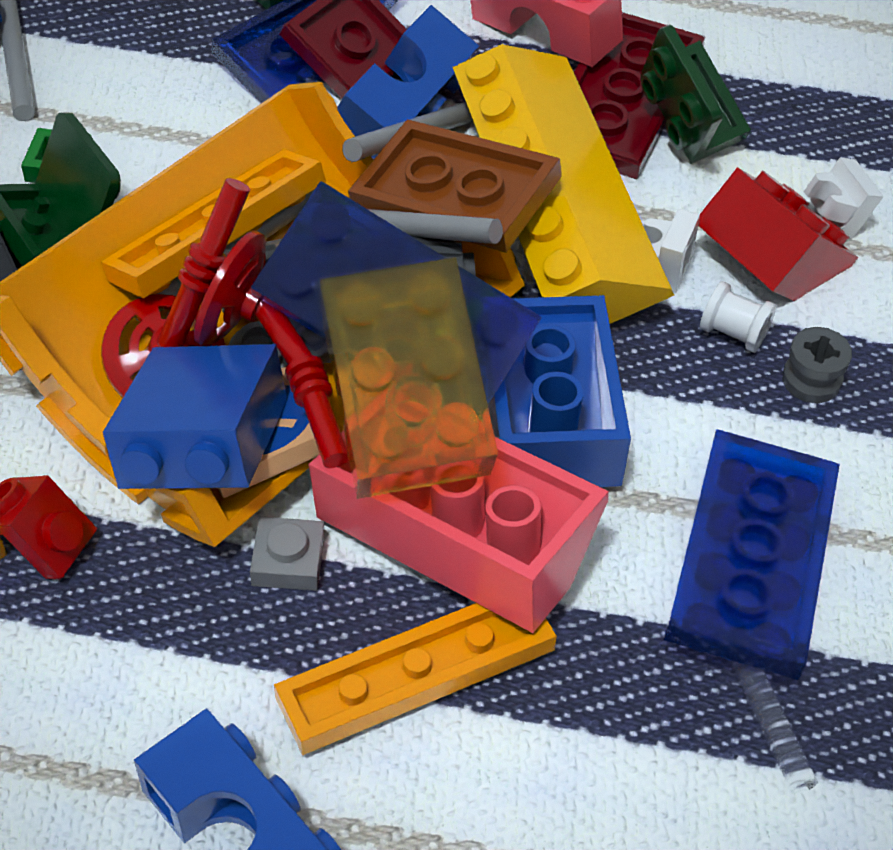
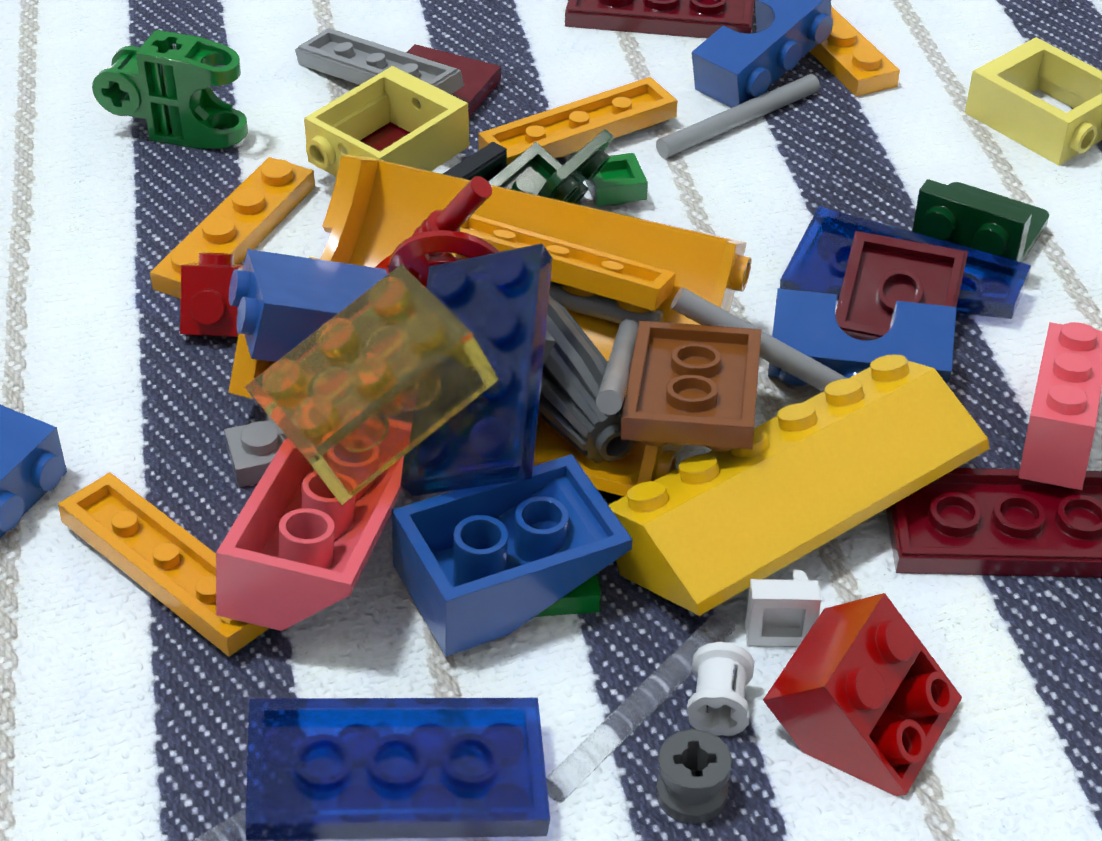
camera: 70 degrees right, 10 degrees down
(691, 97) = (1003, 552): dark green bracket -> none
(722, 374) = (634, 709): none -> clear bar
(844, 195) = (970, 741): white tile -> none

